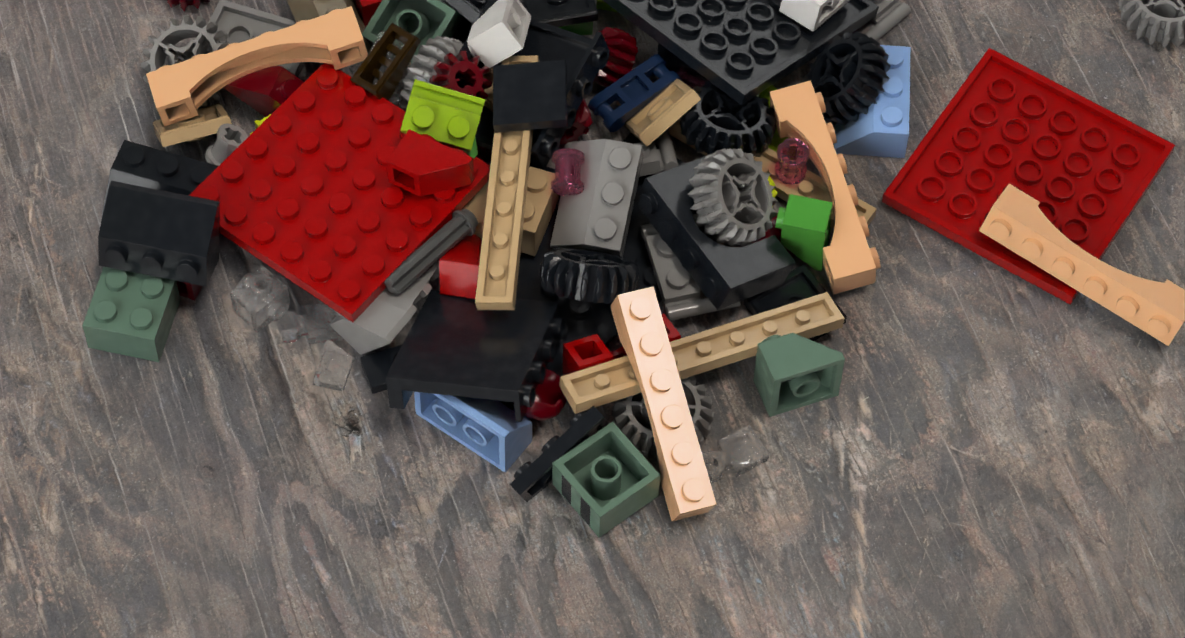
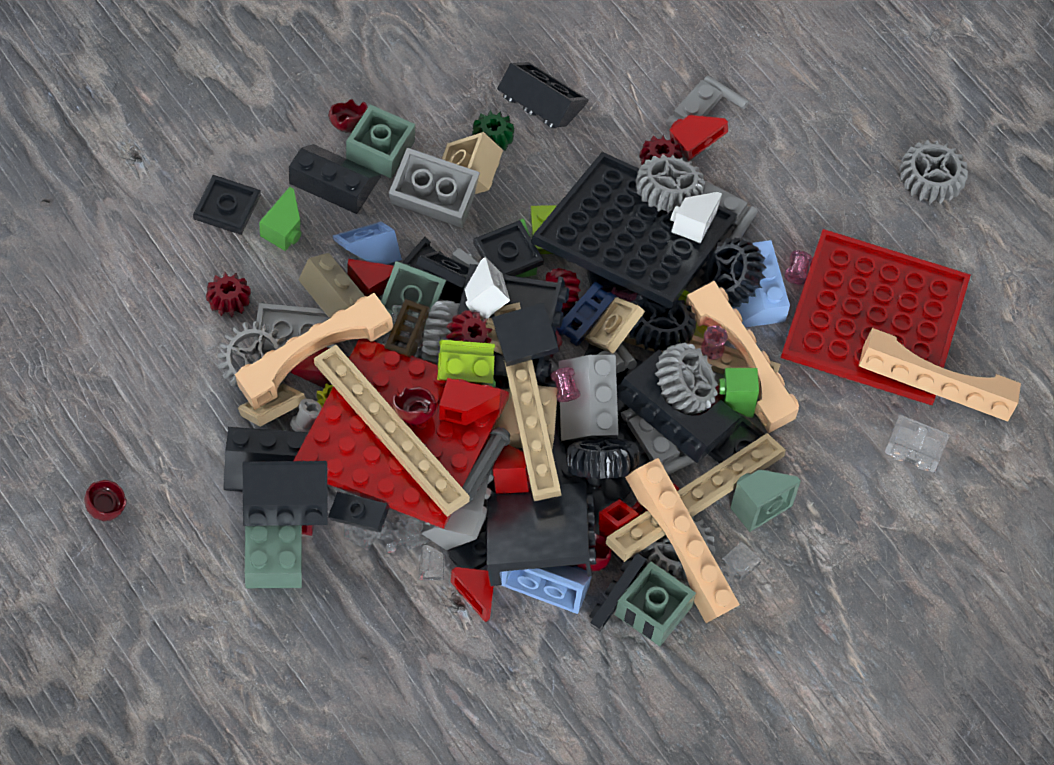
camera: 20 degrees left, 0 degrees up
(250, 278) = (358, 511): none -> black plate
(320, 183) = (392, 430): none -> tan plate
(357, 157) = (414, 405): none -> dark red hair
(374, 408) = (475, 588): none -> red slope
(944, 86) = (798, 267): none -> clear pink bush
(1030, 348) = (917, 444): none -> clear brick

